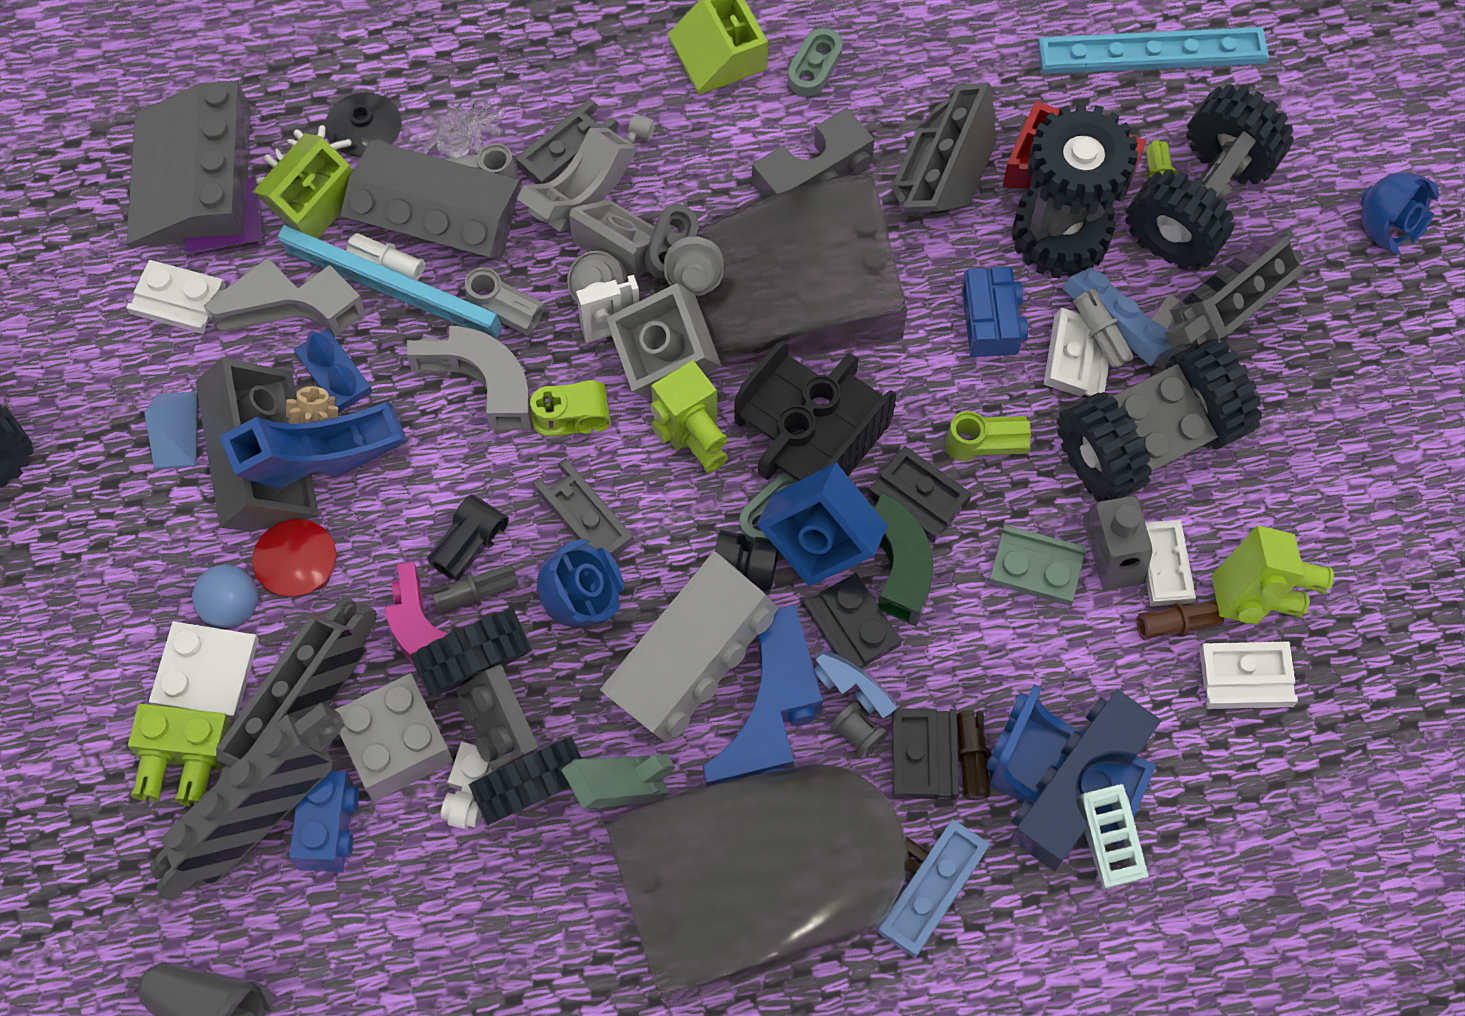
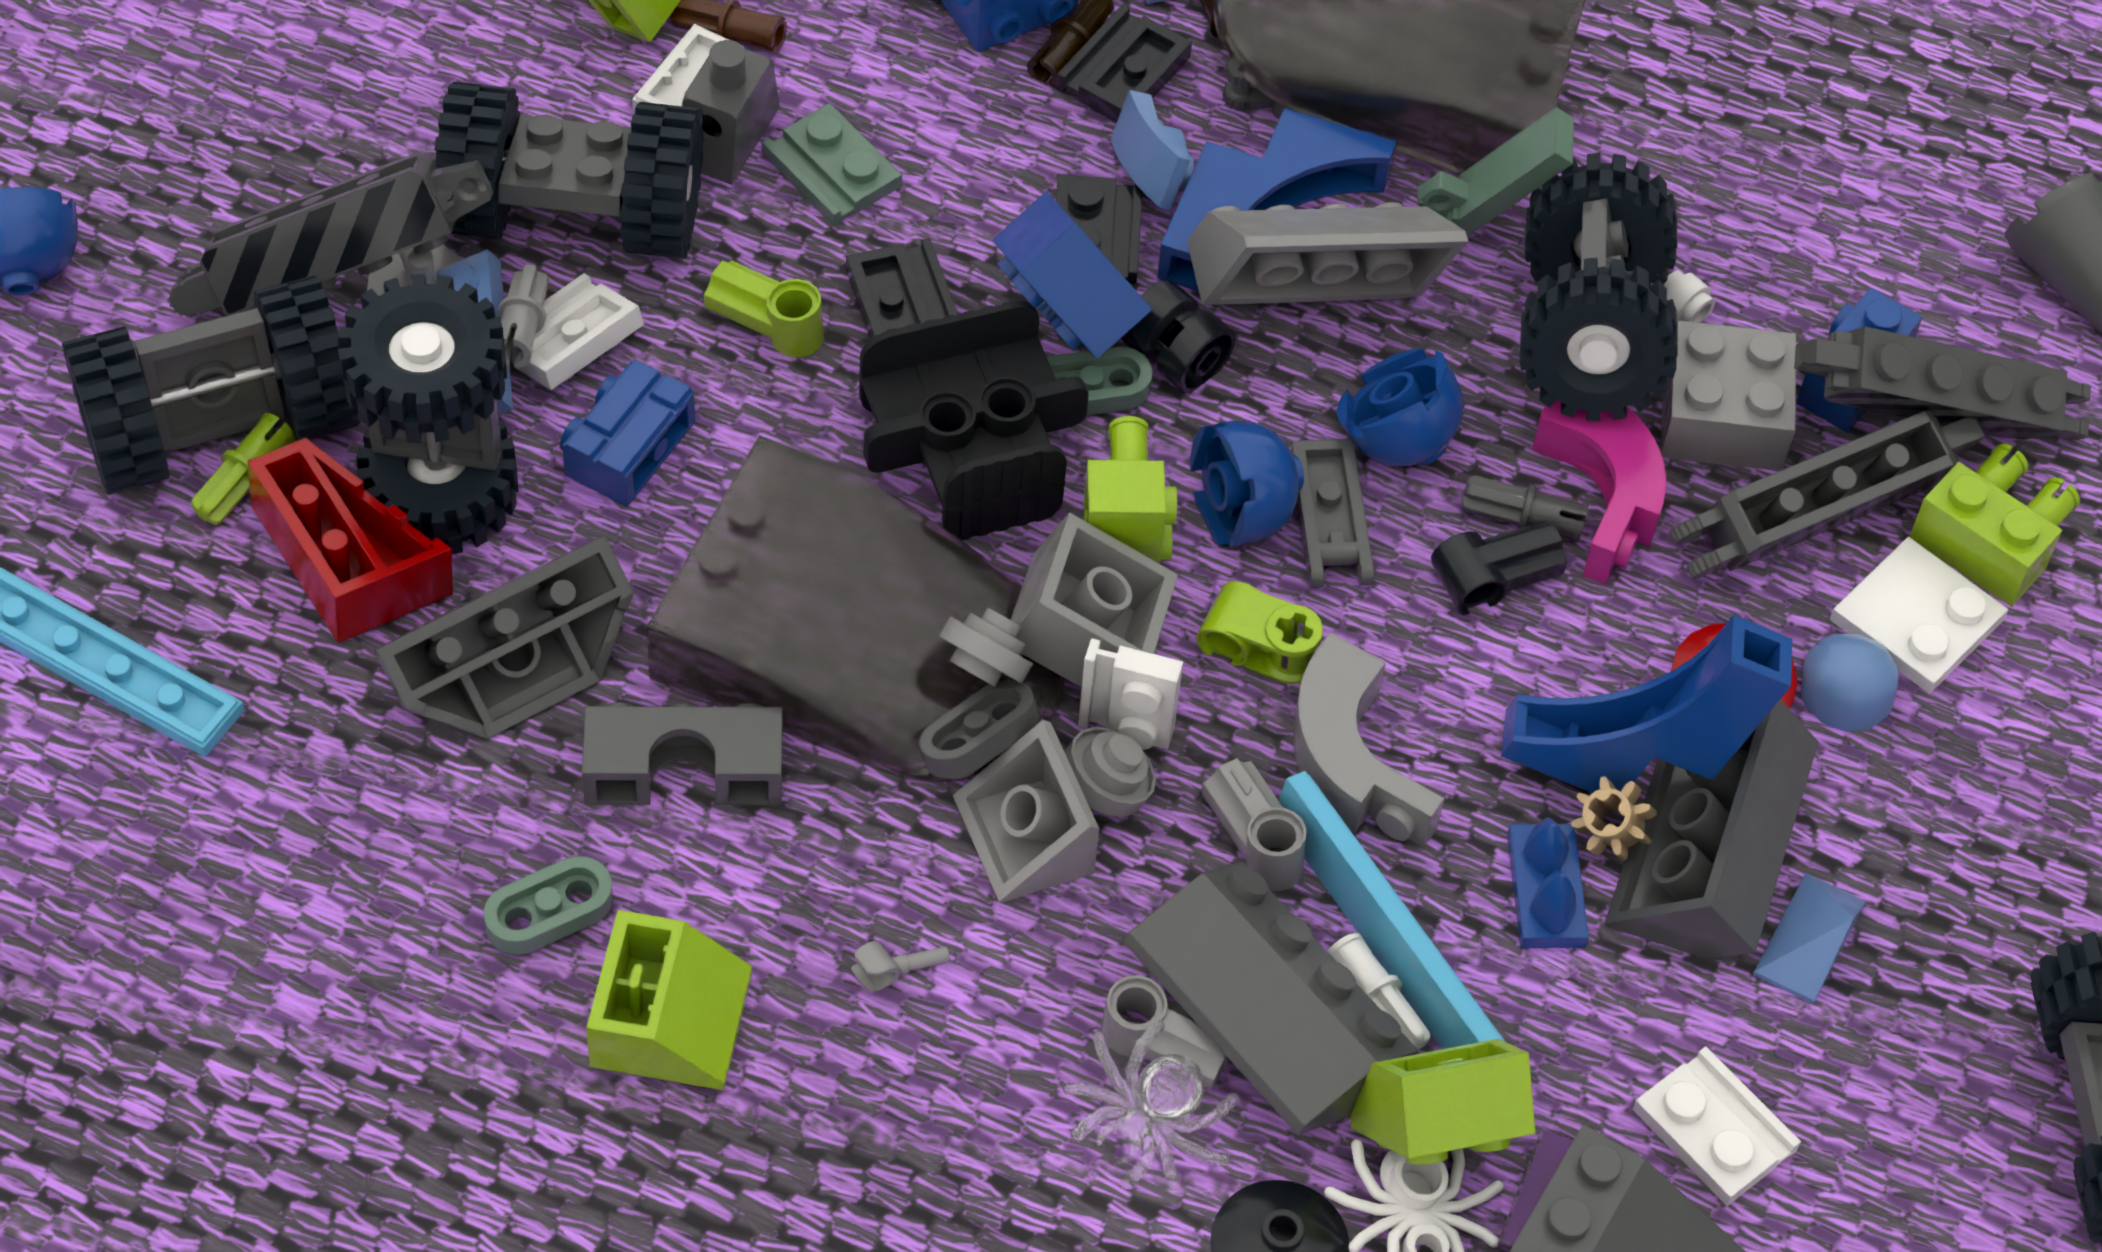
camera: 150 degrees left, 10 degrees down
(269, 296) = (1581, 1024): light grey arch -> none
(558, 147) = (1006, 1003): dark grey hinge -> none
(586, 180) = (1008, 925): light grey arch -> none
(635, 481) = (1246, 480): none -> blue cylinder
(858, 730) = (1182, 113): dark grey bush -> none
(910, 562) = (979, 217): dark green arch -> none

